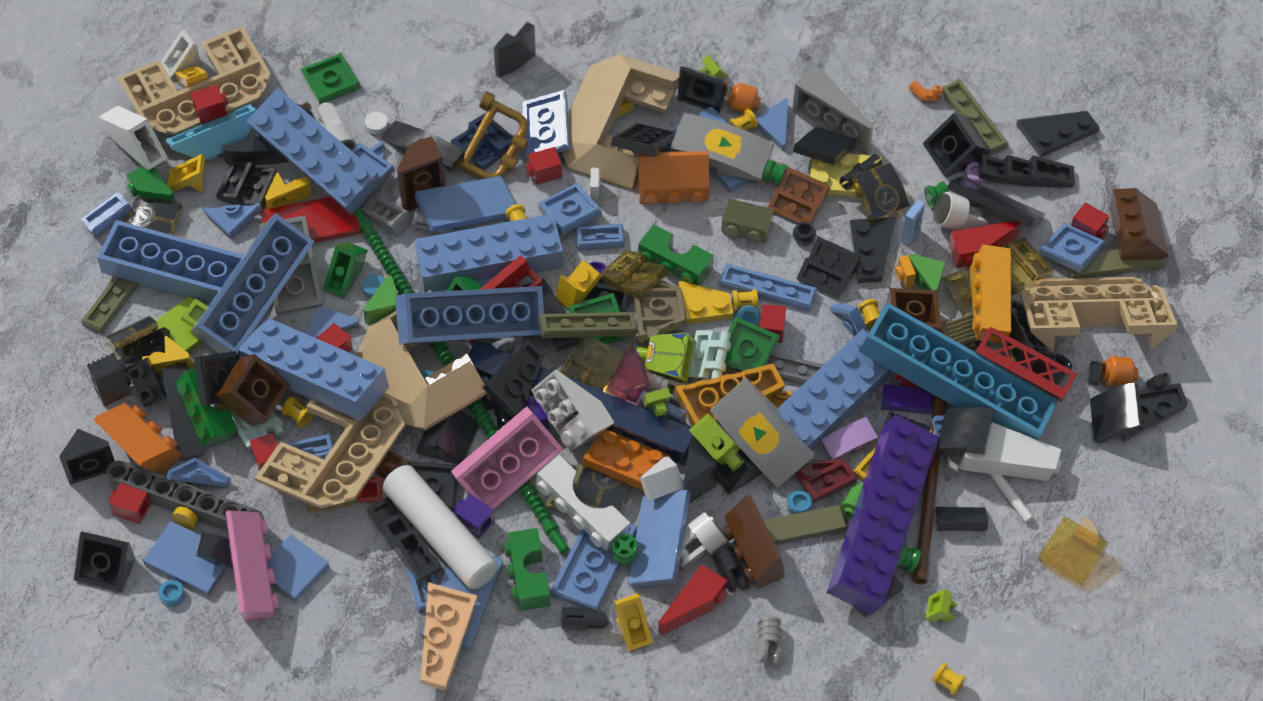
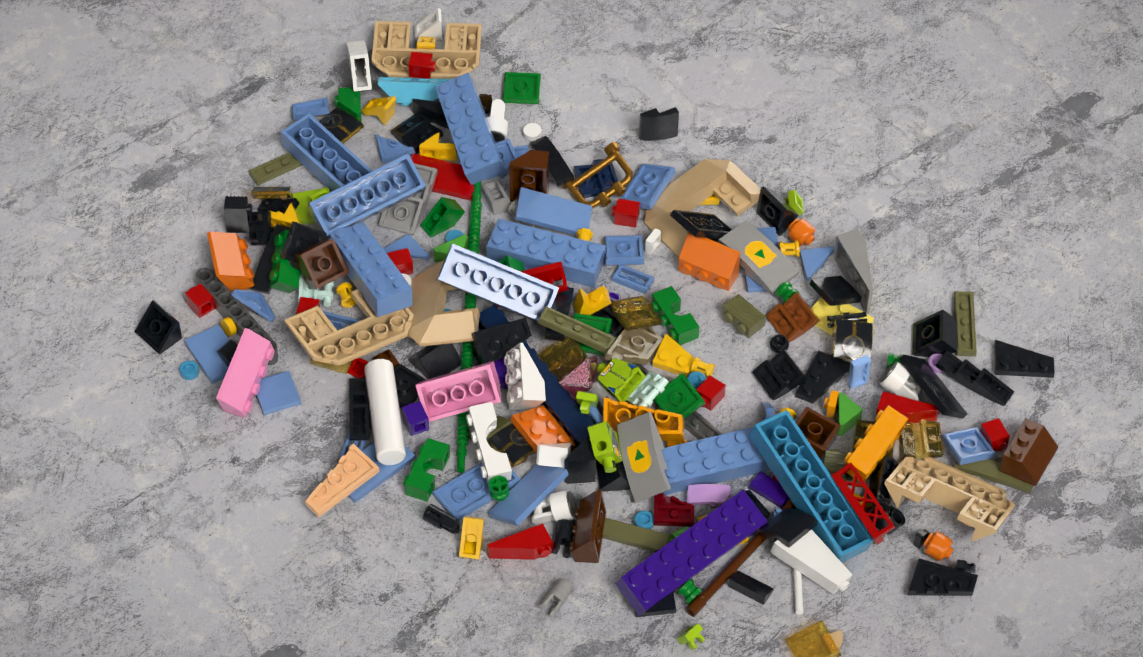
camera: 30 degrees right, 5 degrees down
(85, 457) = (188, 255): black slope -> none
(768, 287) = (727, 368): medium blue tile -> none
(926, 94) = (945, 293): orange arm -> none
(1116, 412) = (913, 570): black slope -> none

